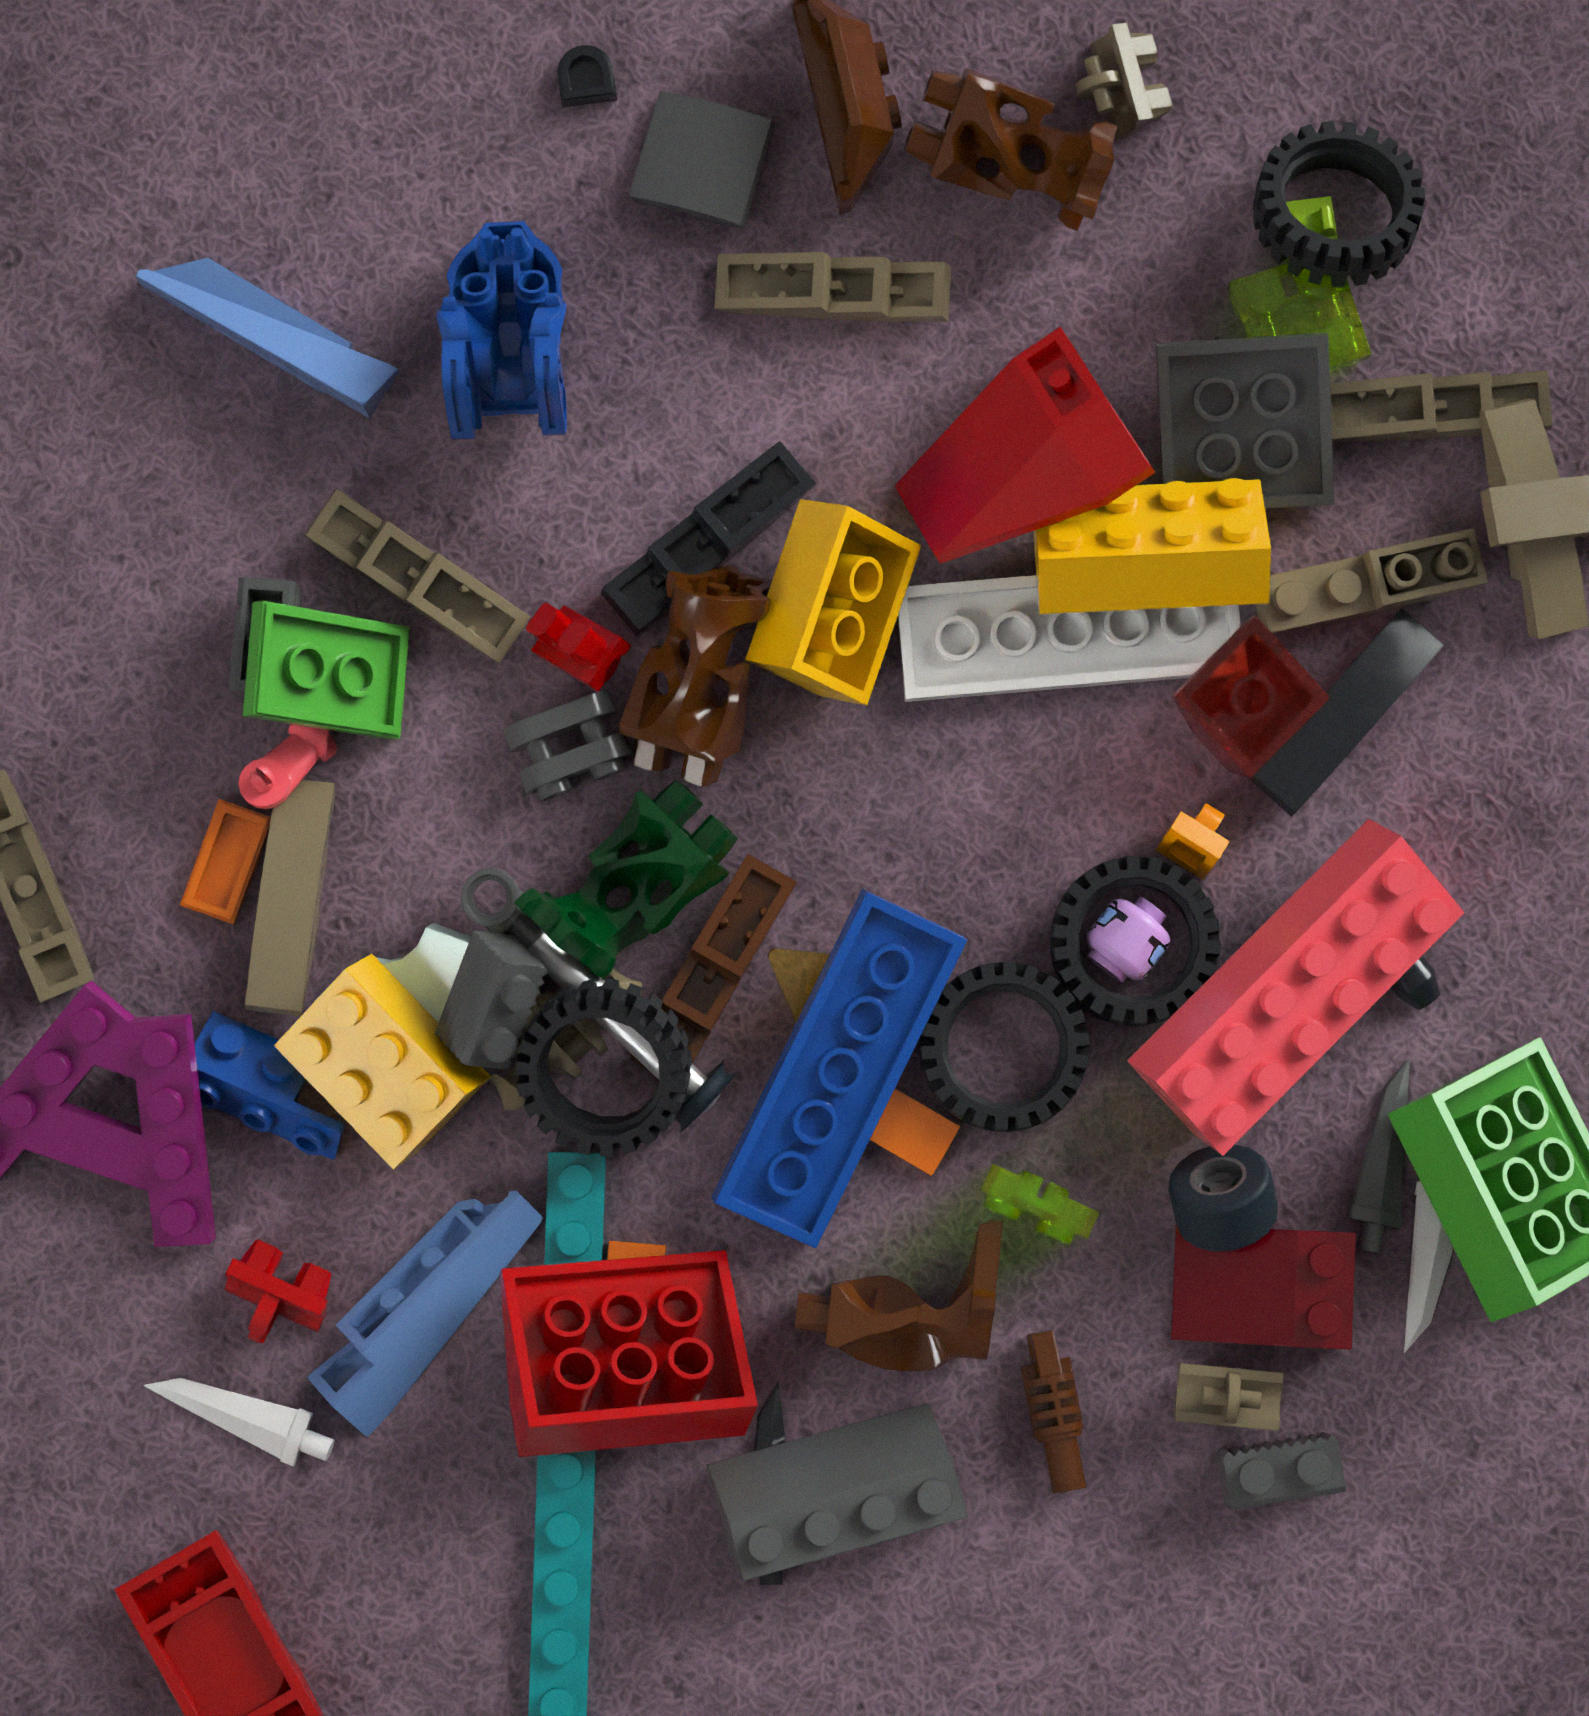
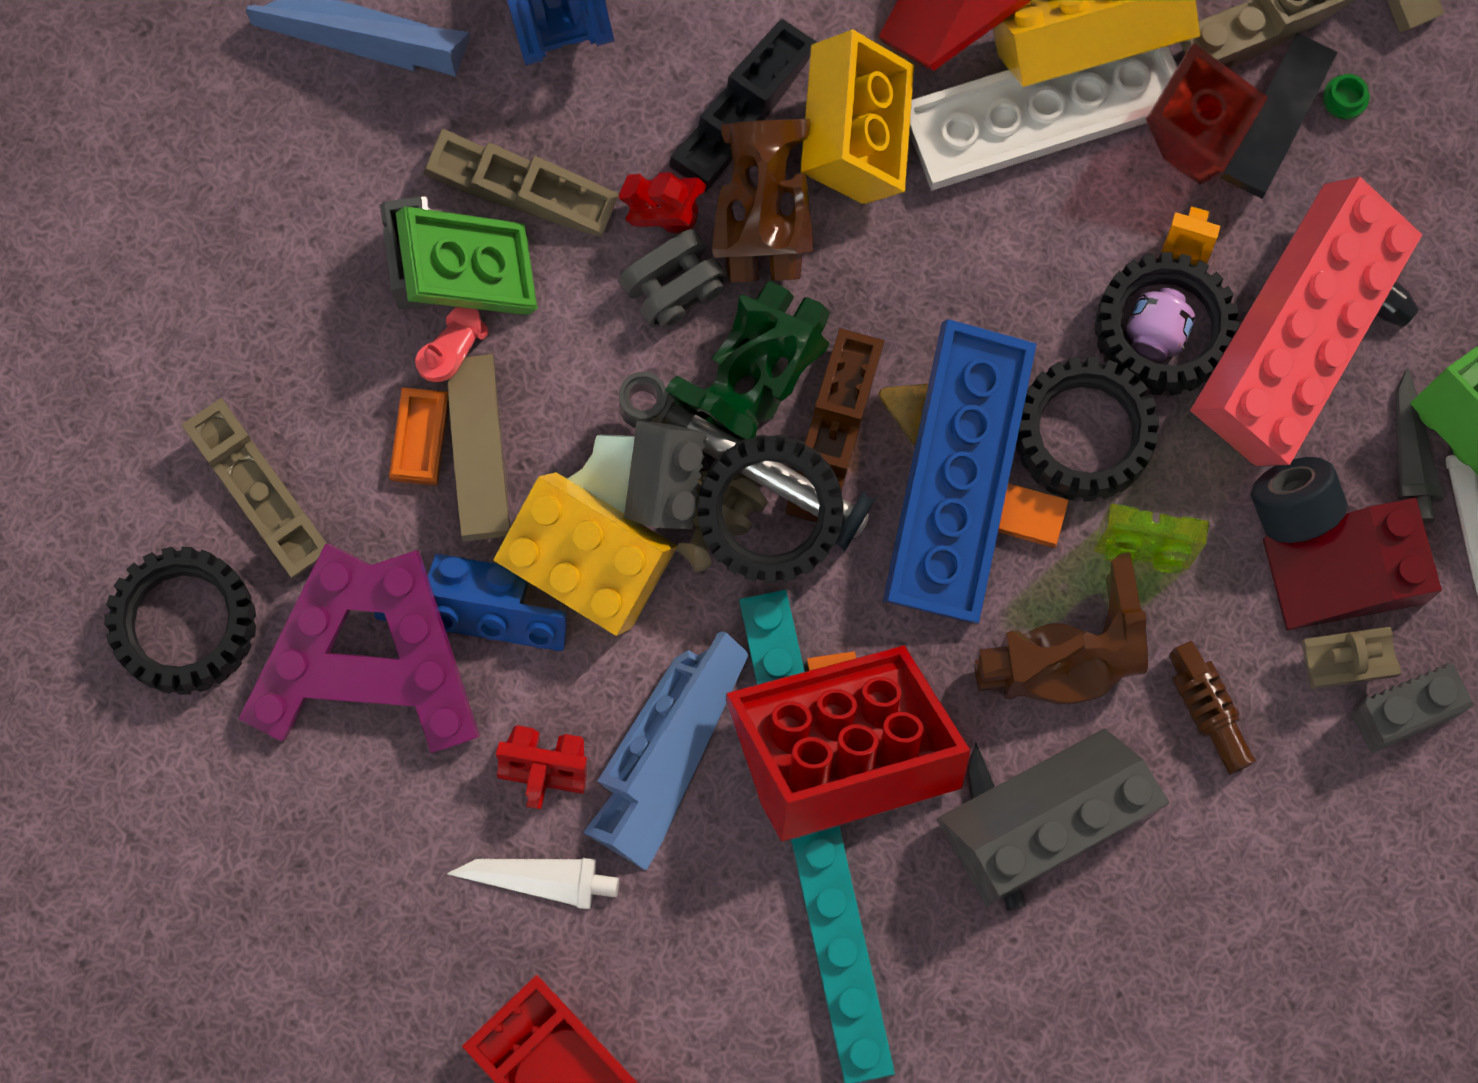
camera: 10 degrees left, 10 degrees down
(1436, 704) = (1346, 96): none -> green plate

